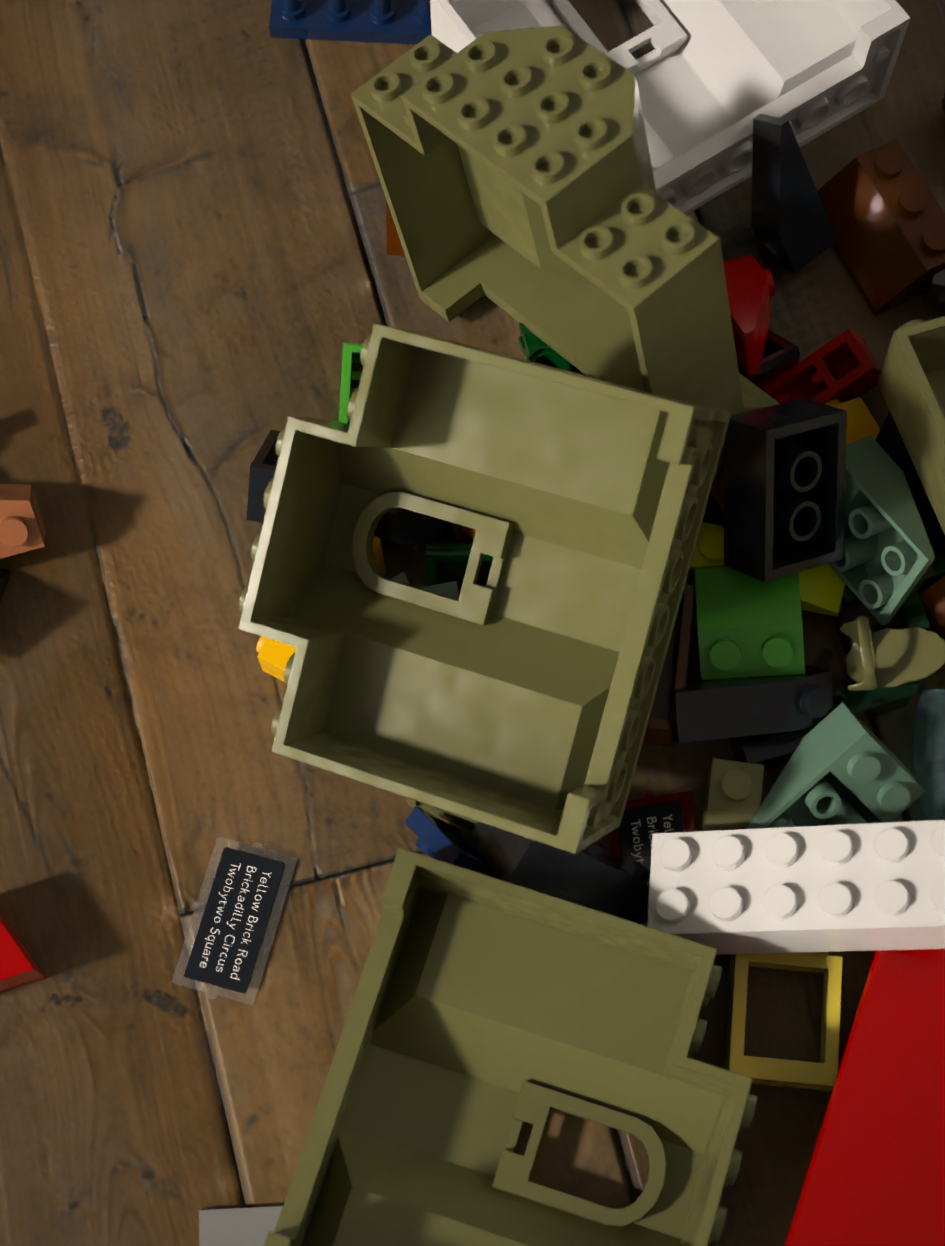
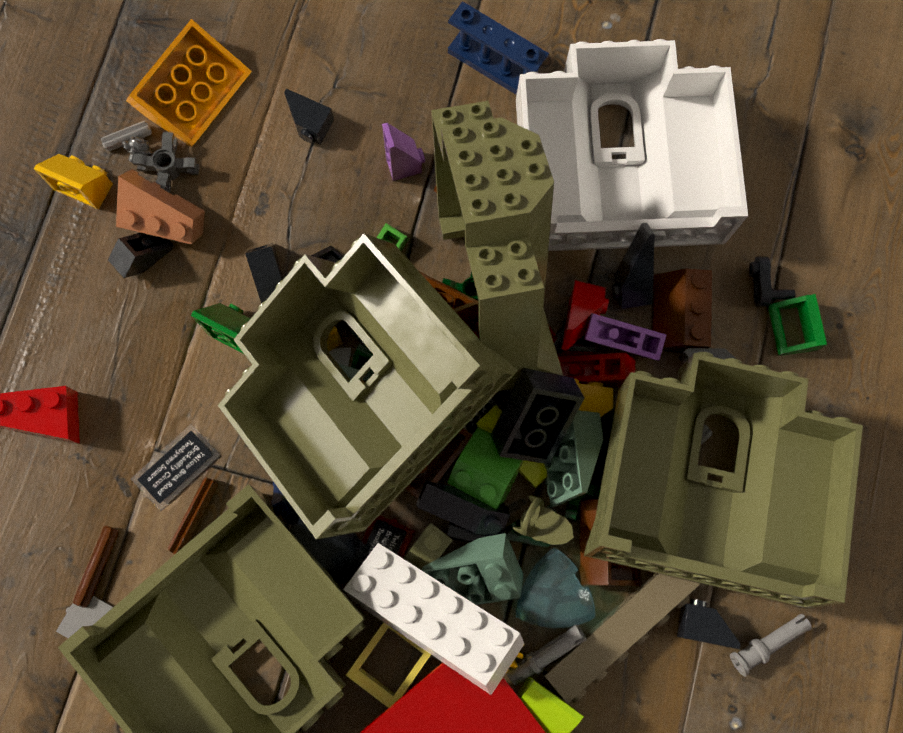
camera: 25 degrees right, 5 degrees up
(109, 248) = (309, 117): none -> black slope
(198, 644) = (221, 322): none -> green slope
(202, 1157) = (95, 566): none -> reddish brown axle
(203, 529) = (264, 269): none -> black slope
(301, 224) = (401, 153): none -> medium lavender slope
(314, 981) = (193, 515): none -> reddish brown axle
(832, 307) = (625, 337): none -> medium lavender slope

